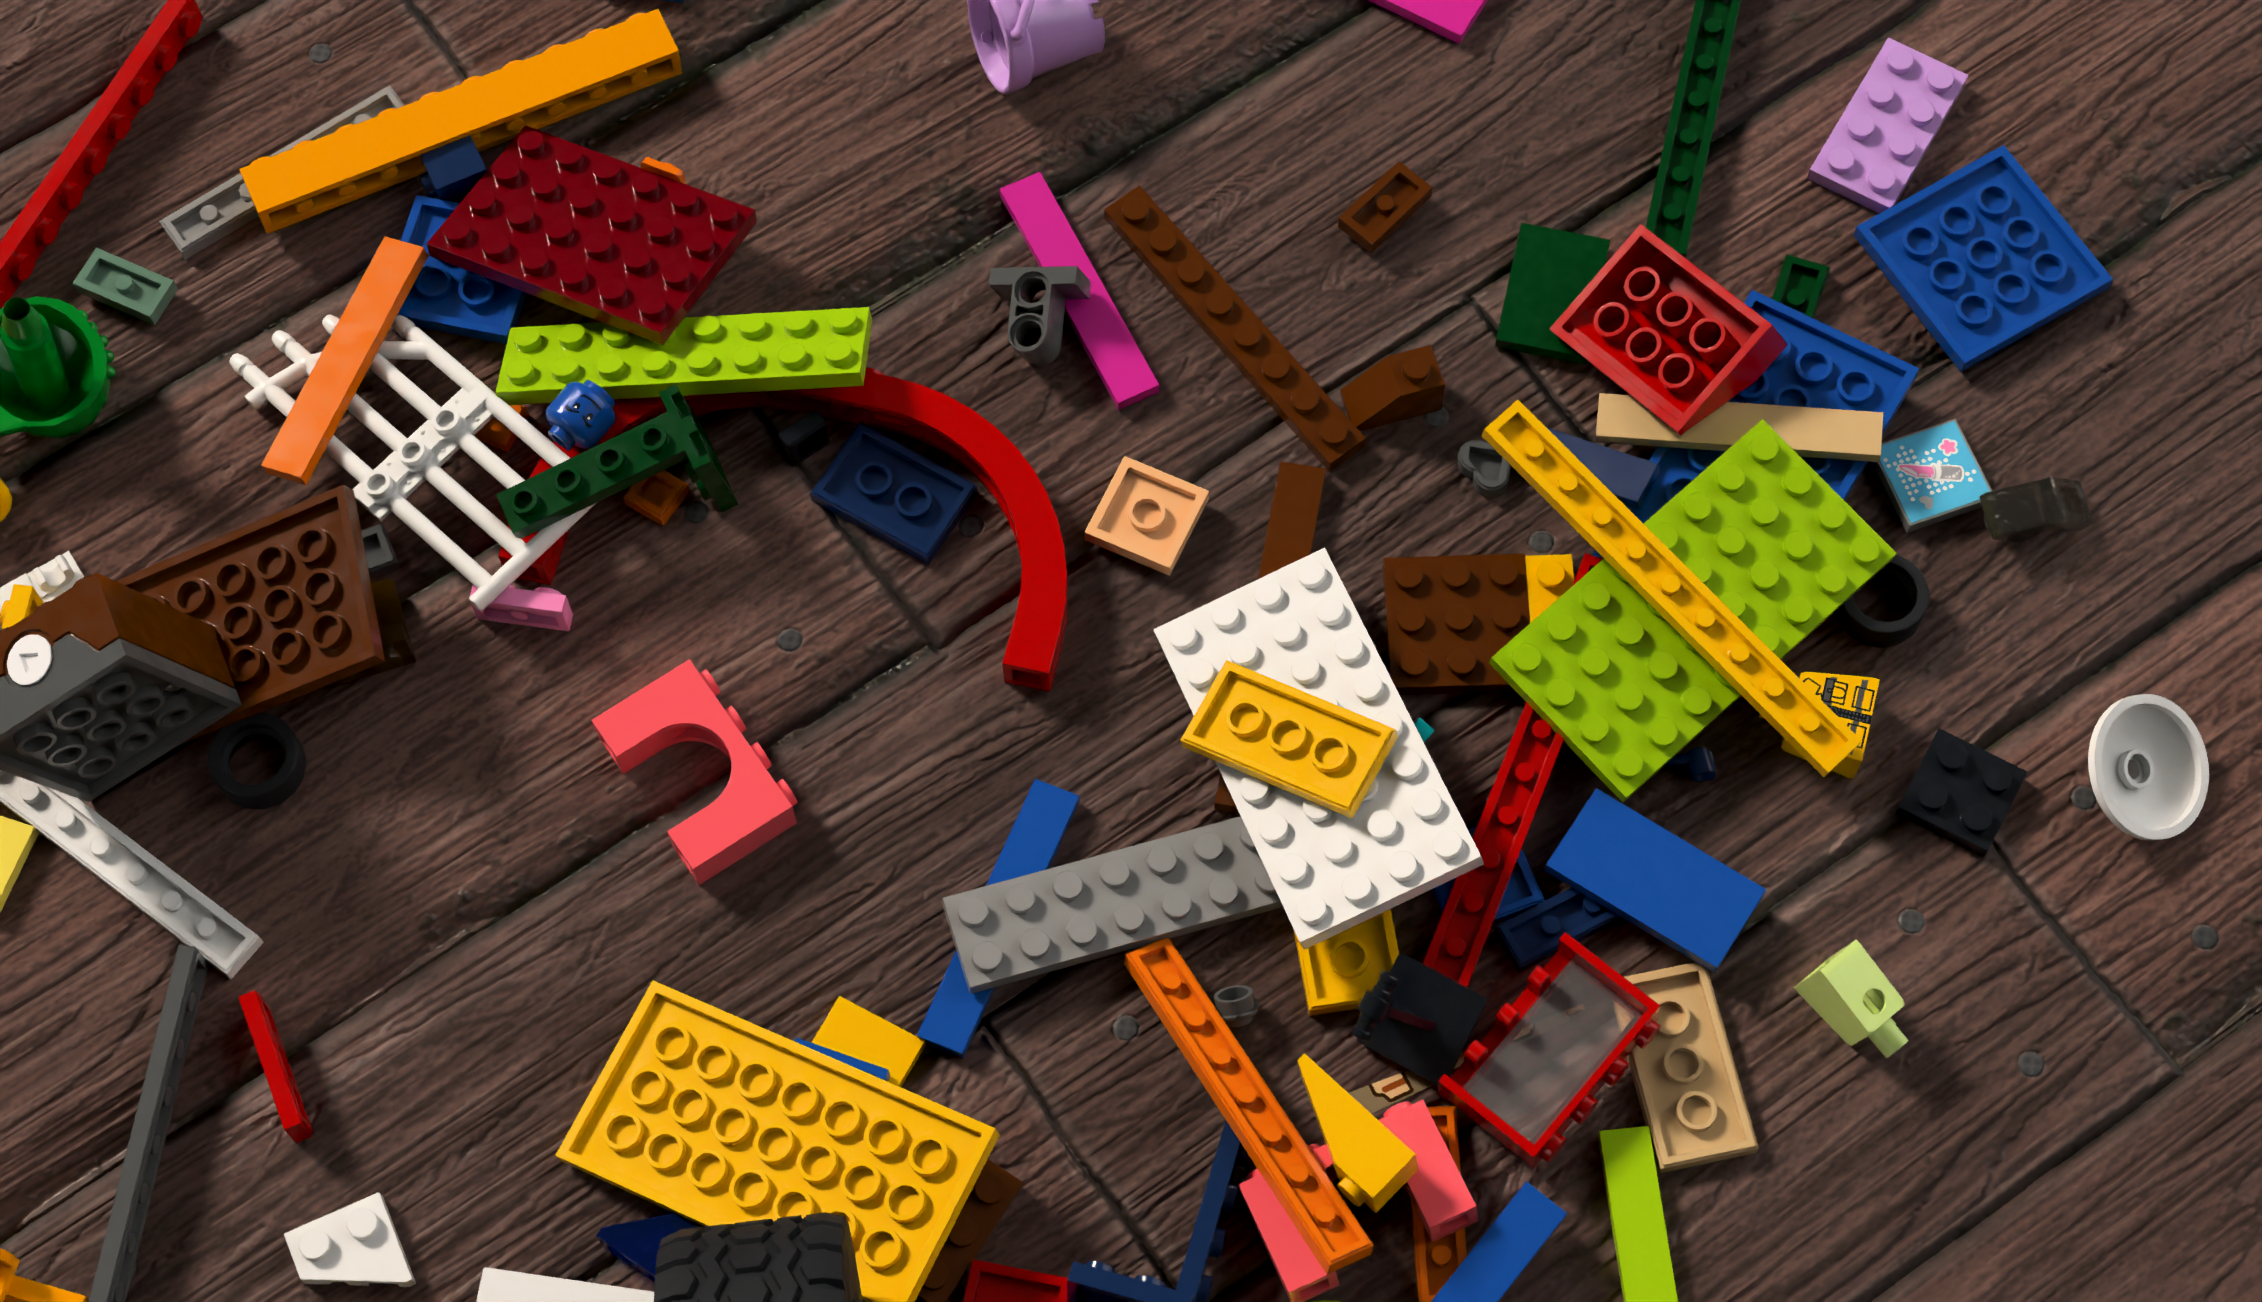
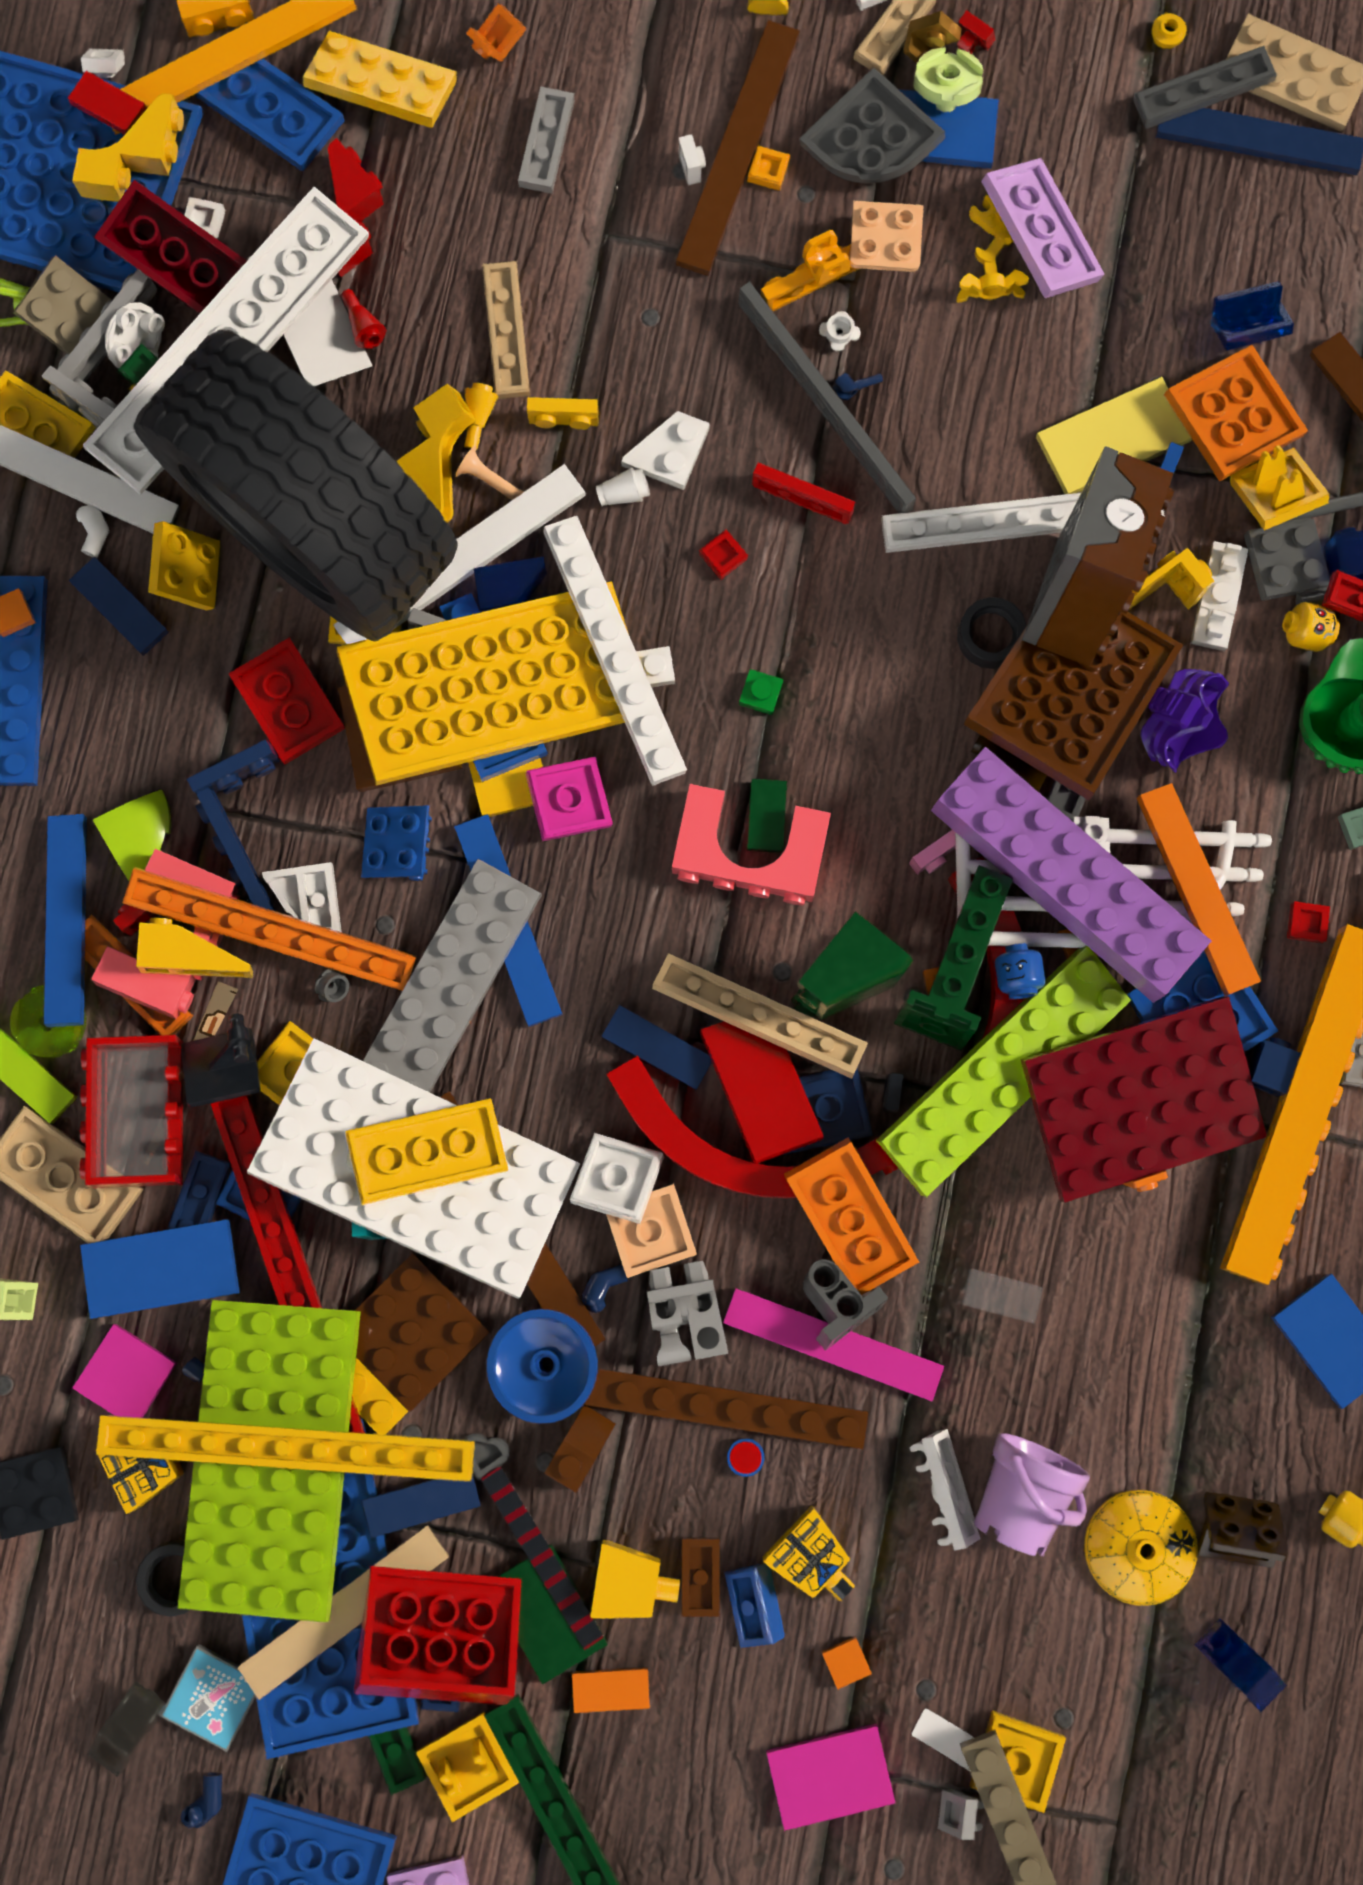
camera: 135 degrees right, 15 degrees up
(40, 1199) = (842, 321): none -> white plate
(111, 1142) = (847, 388): none -> dark blue hand
(180, 513) = (1185, 718): none -> dark purple piece
(284, 264) = (1308, 922): none -> red tile
(417, 1086) = (723, 554): none -> red tile
(440, 1246) = (624, 488): none -> white cone
(443, 454) = (1070, 875): none -> medium lavender brick
(529, 913) = (761, 692): none -> green plate
(600, 1031) = (657, 666): none -> white plate
(624, 1077) = (614, 650): none -> white plate
(651, 789) = (767, 815): none -> dark green tile
(737, 543) = (850, 970): none -> dark green windscreen
(822, 977) = (568, 798): none -> dark pink tile
(853, 603) = (760, 1015): none -> tan plate
(889, 204) = (1002, 1296): none -> clear tile
(914, 544) = (761, 1091): none -> red tile
(951, 359) = (851, 1216): none -> orange plate
(976, 671) = (657, 1047): none -> dark blue tile
(1035, 1090) = (396, 842): none -> blue hinge
(1100, 96) = (948, 1490): none -> white plate
(1131, 582) = (617, 1178): none -> white tile
(1175, 424) = (684, 1305): none -> light grey hips
(1175, 1119) = (307, 893): none -> white wing
(1241, 512) = (598, 1285): none -> dark blue arm
(1249, 268) = (745, 1457): none -> red tile
(1272, 143) = (811, 1557): none -> torso
(1323, 47) = (846, 1662): none -> orange tile
(1360, 152) = (754, 1605): none -> blue slope
(1374, 455) = (518, 1371): none -> blue dish
(1383, 1261) = (130, 917): none -> red plate
(1455, 251) = (629, 1583): none -> yellow torso
(1515, 324) = (542, 1558): none -> black sticker
(1552, 190) = (610, 1690): none -> orange tile
(1592, 1236) = (33, 1037): none -> clear neon green plate
(1738, 232) = (467, 1767): none -> yellow plate
(1777, 821) = (124, 1374): none -> dark pink tile
(2012, 393) = (207, 1805): none -> dark blue arm

